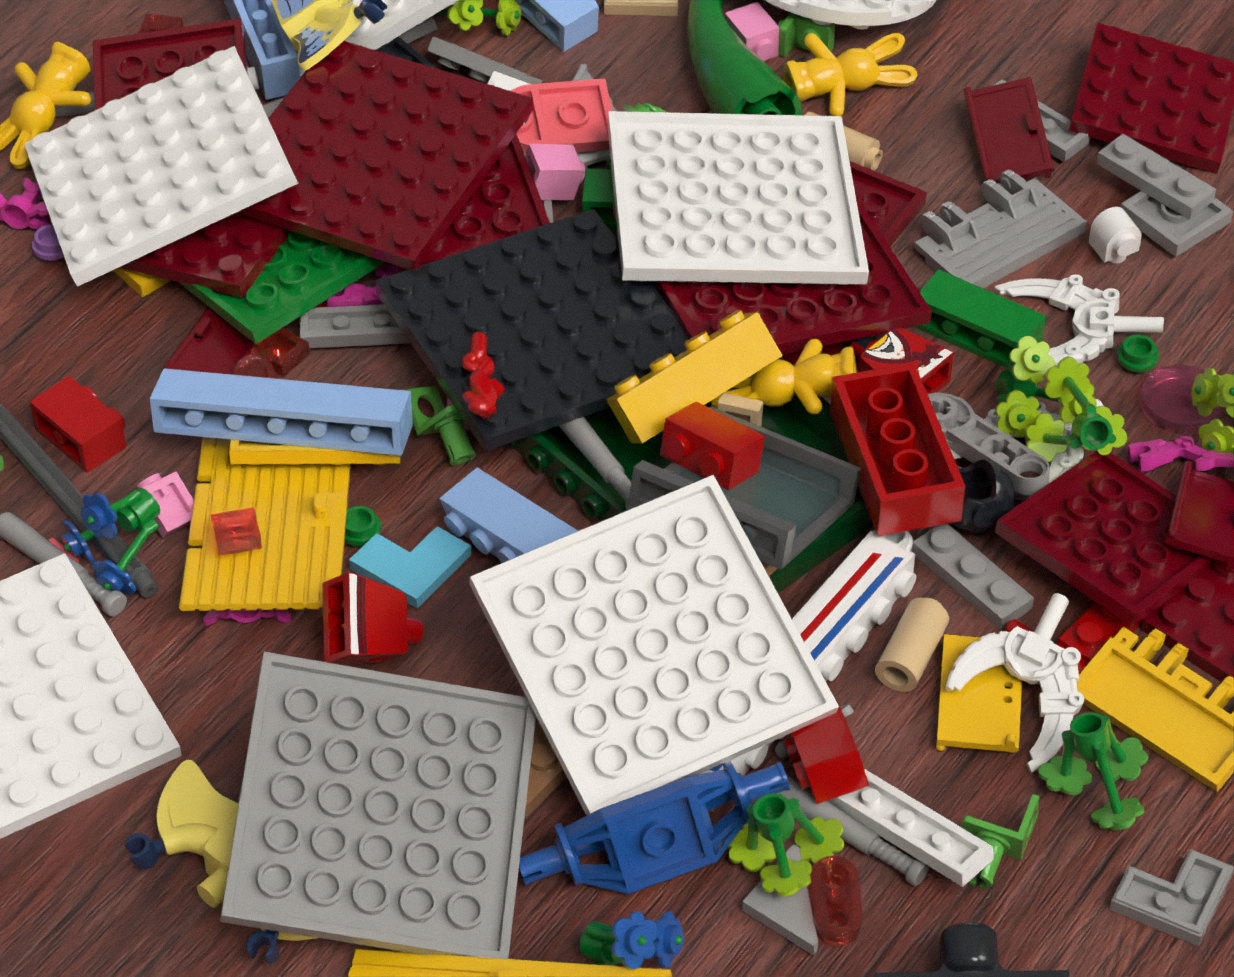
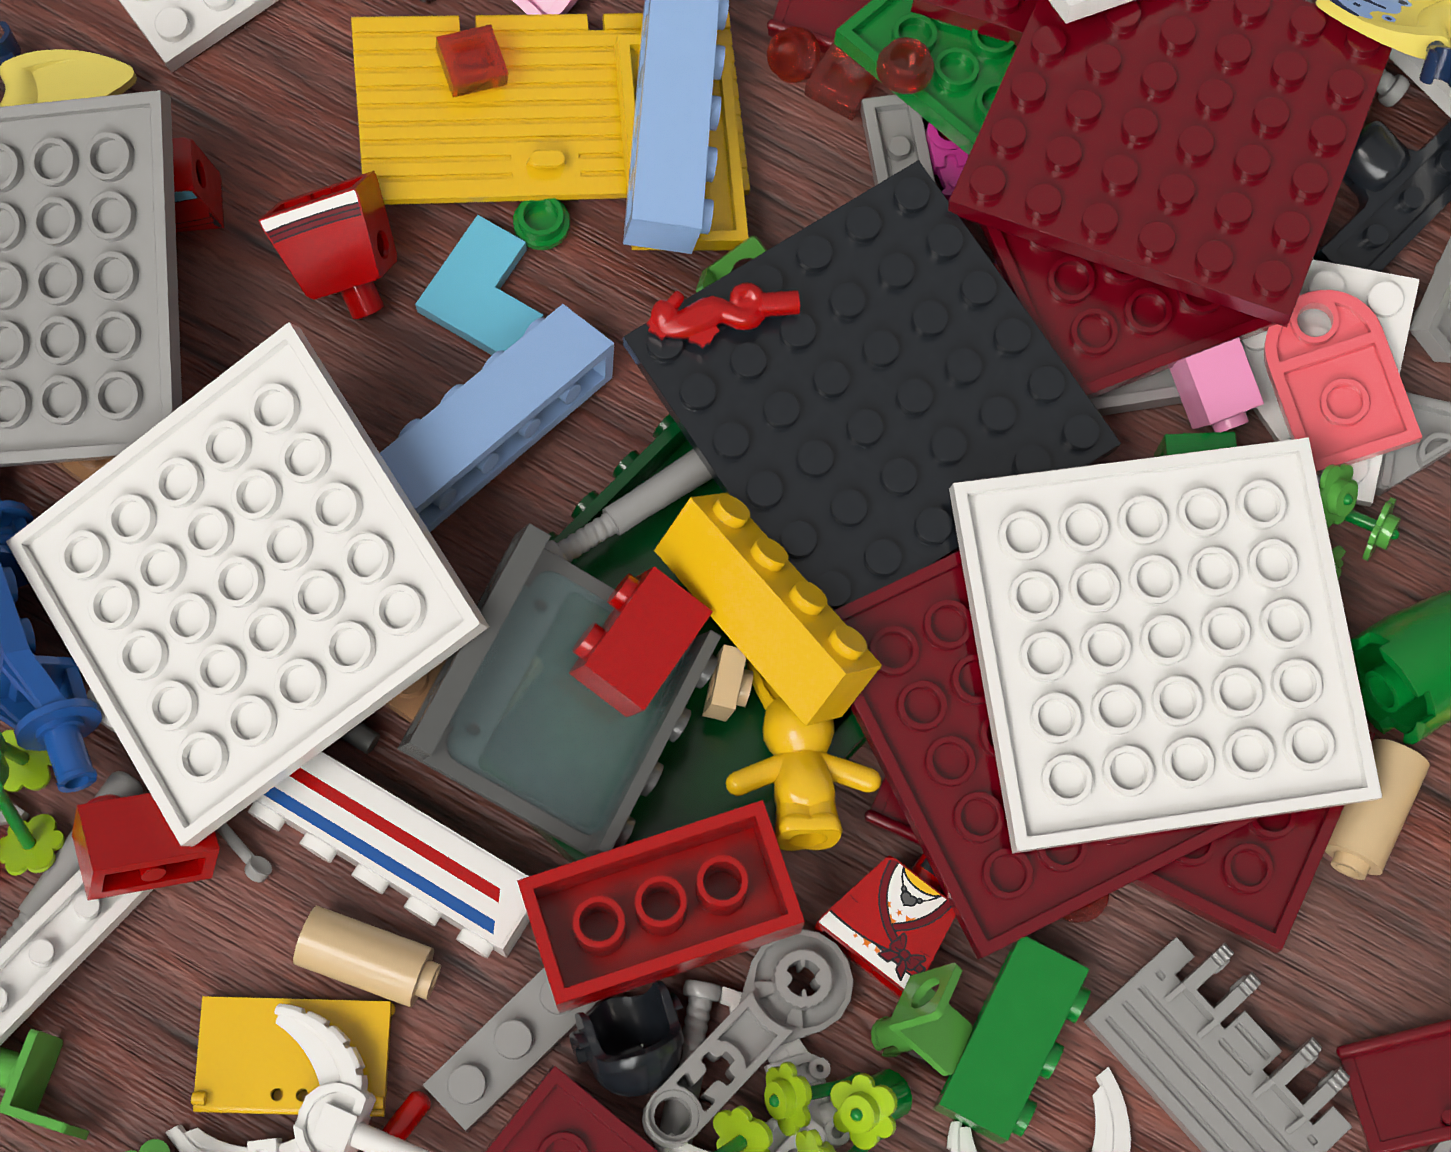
camera: 80 degrees right, 25 degrees up
(295, 288) = (905, 66): none -> clear red plate
(971, 346) = (926, 1021): none -> bright green bracket

